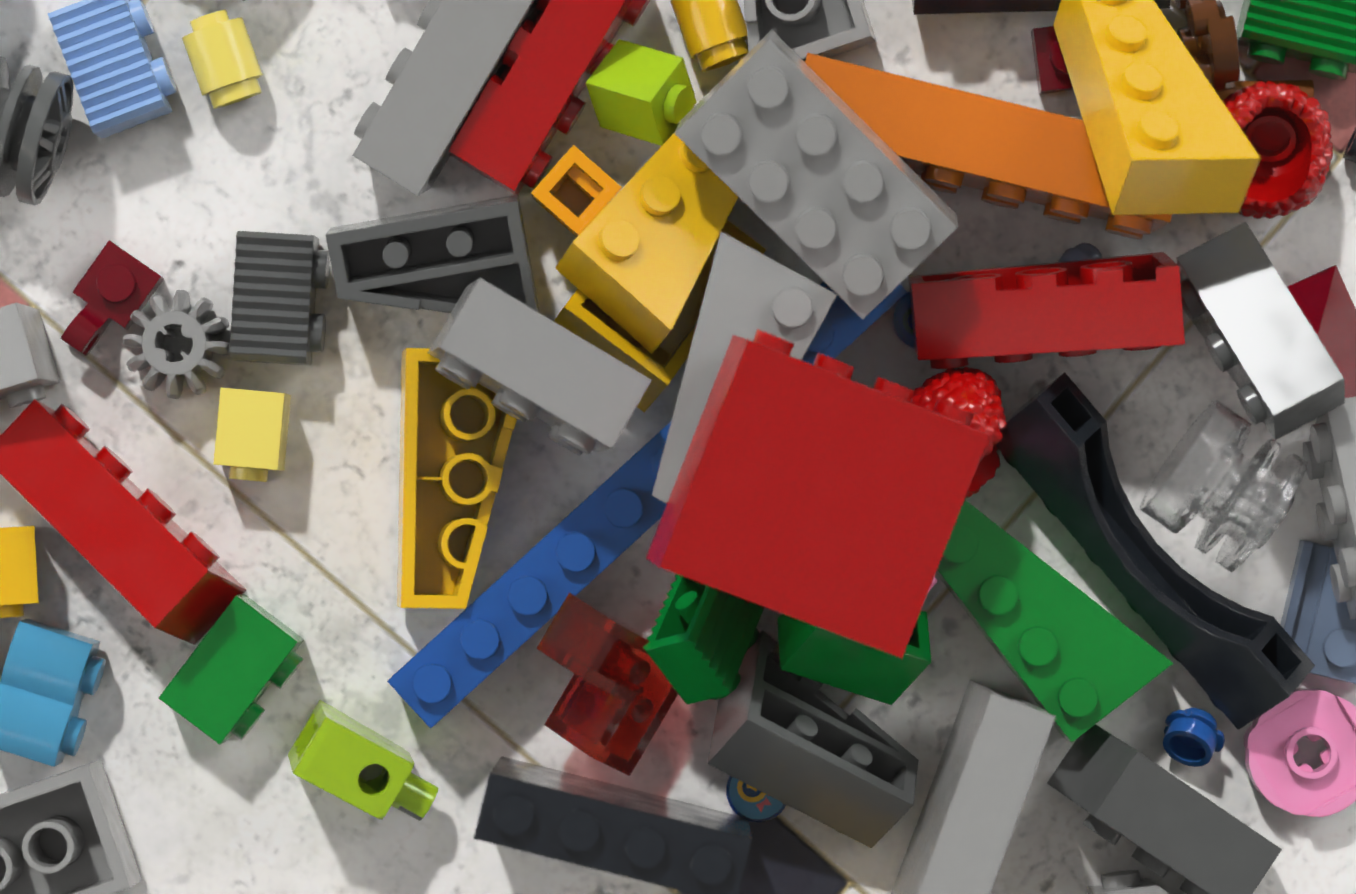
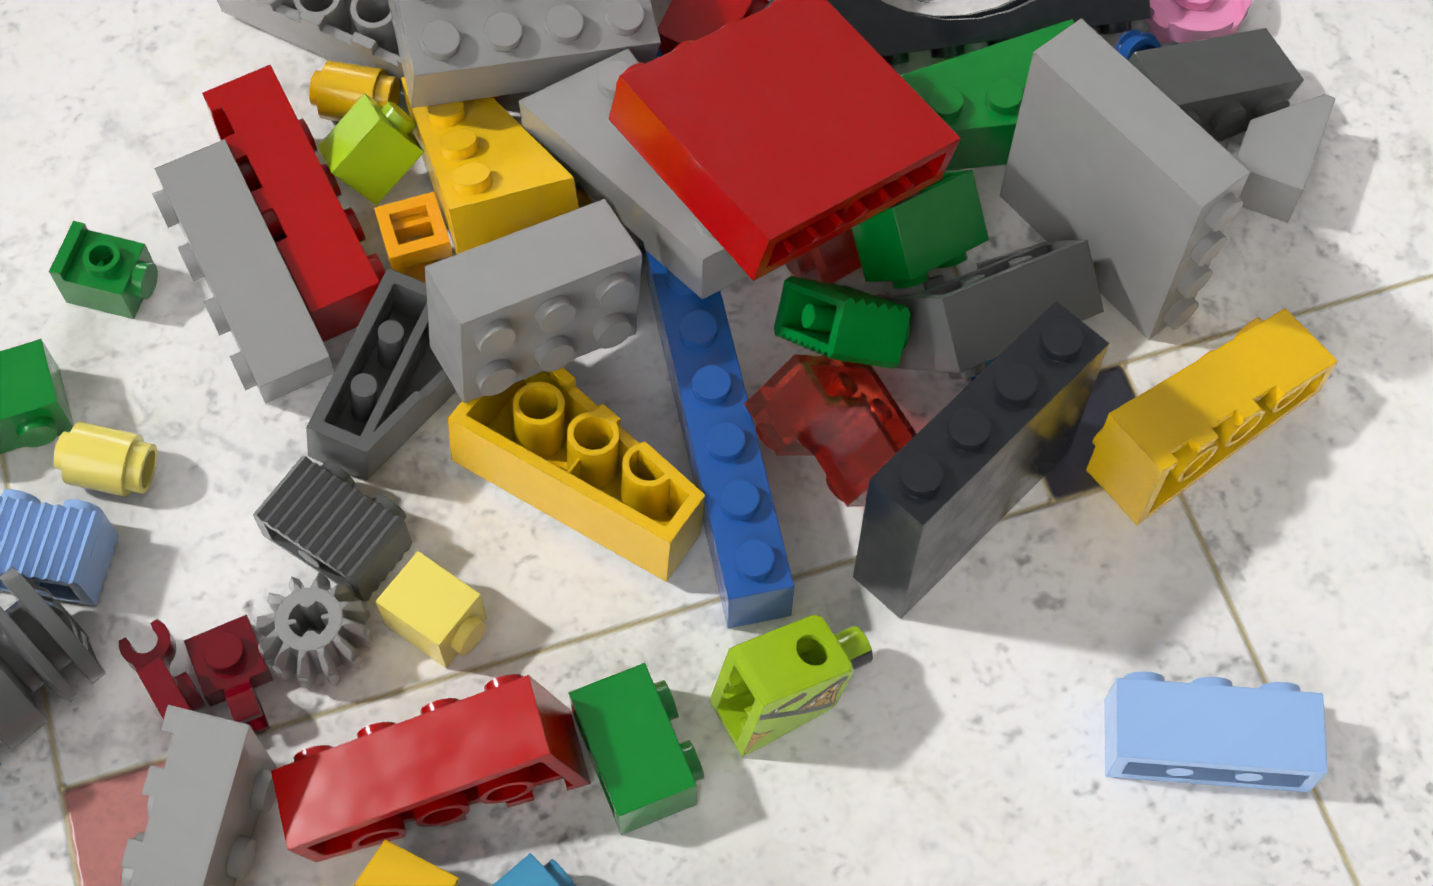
camera: 60 degrees left, 25 degrees down
(57, 266) = (156, 674): none -> dark red plate

